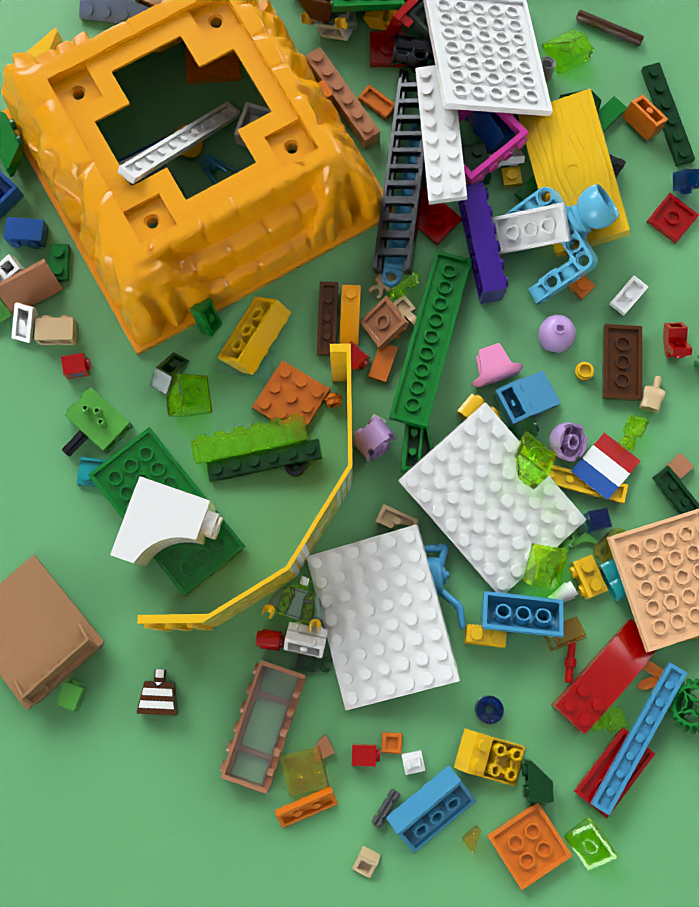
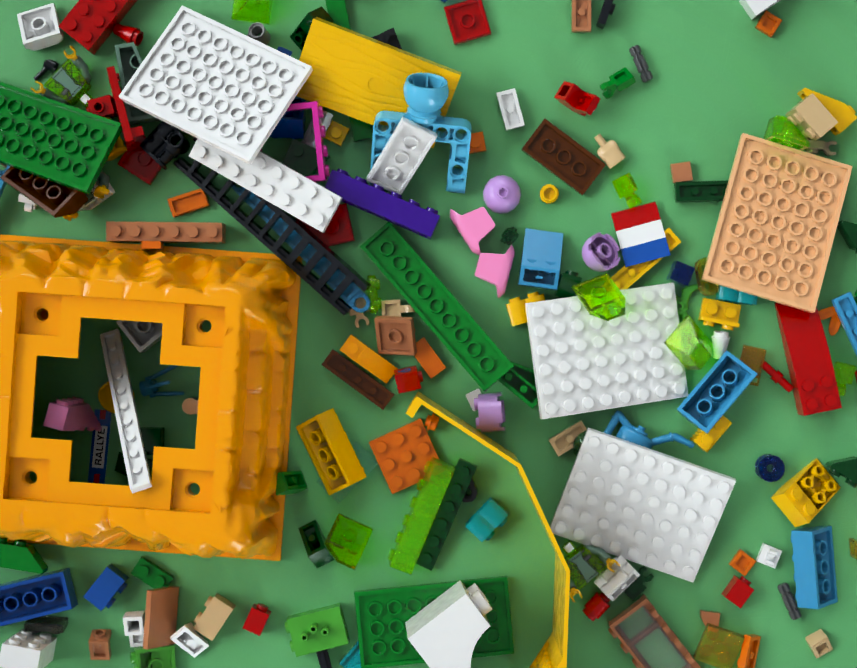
camera: 55 degrees left, 10 degrees up
(148, 109) = (71, 415): none -> bright pink wedge
(282, 497) = (487, 519): none -> teal brick
(516, 326) = (473, 226): none -> bright pink piece
(528, 361) = (509, 236): none -> clear green plate

